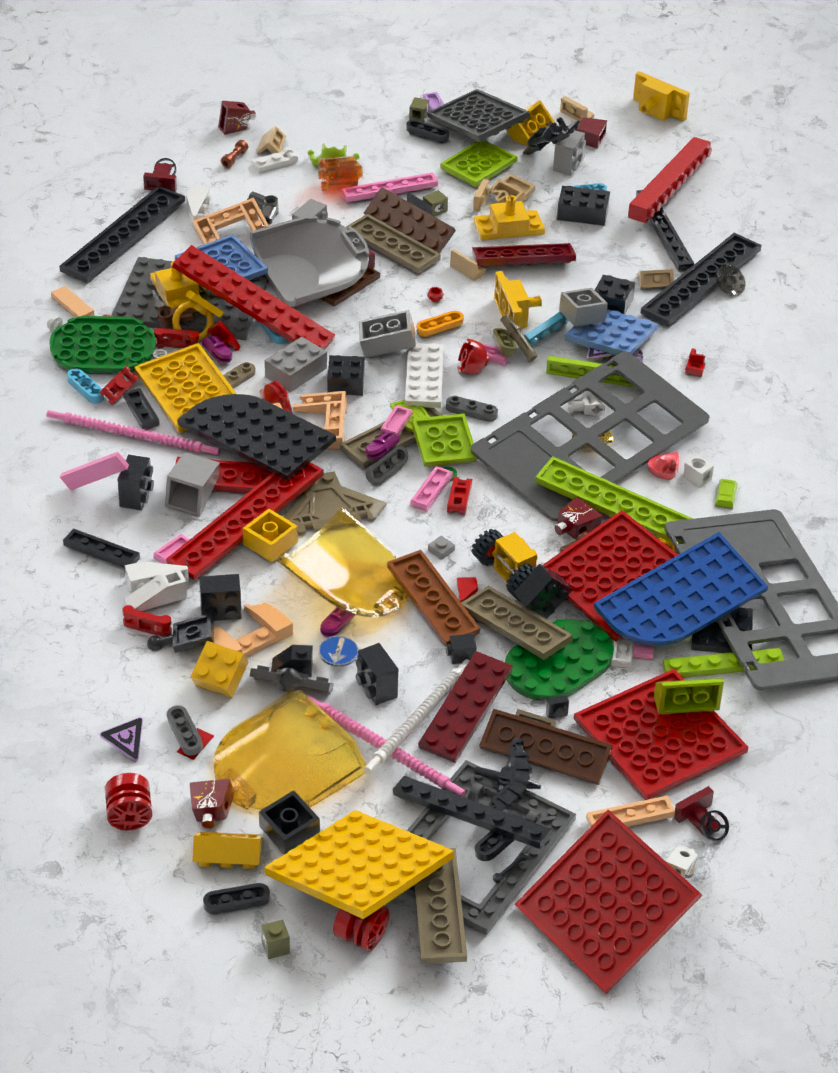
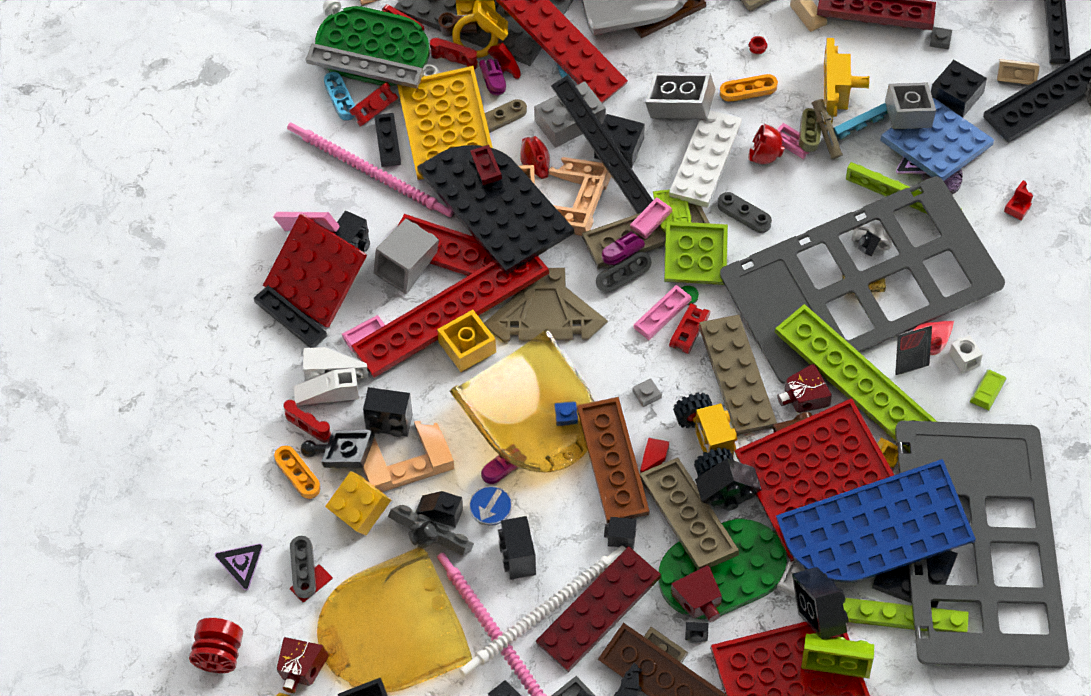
camera: 20 degrees right, 15 degrees up
(102, 356) = (364, 65): none -> light grey plate
(115, 504) = (315, 270): none -> red plate
(151, 661) = (297, 465): none -> light orange plate
(241, 402) = (486, 164): none -> dark red plate
(335, 374) = (602, 144): none -> black tile
(378, 572) = (566, 413): none -> blue plate
(513, 515) = (737, 374): none -> dark tan plate
(549, 675) = (698, 594): none -> dark red torso
(583, 267) = (941, 38): none -> dark grey plate
(587, 406) = (868, 243): none -> black plate
(657, 470) = (913, 350): none -> black sticker
(658, 657) = (820, 603): none -> black brick

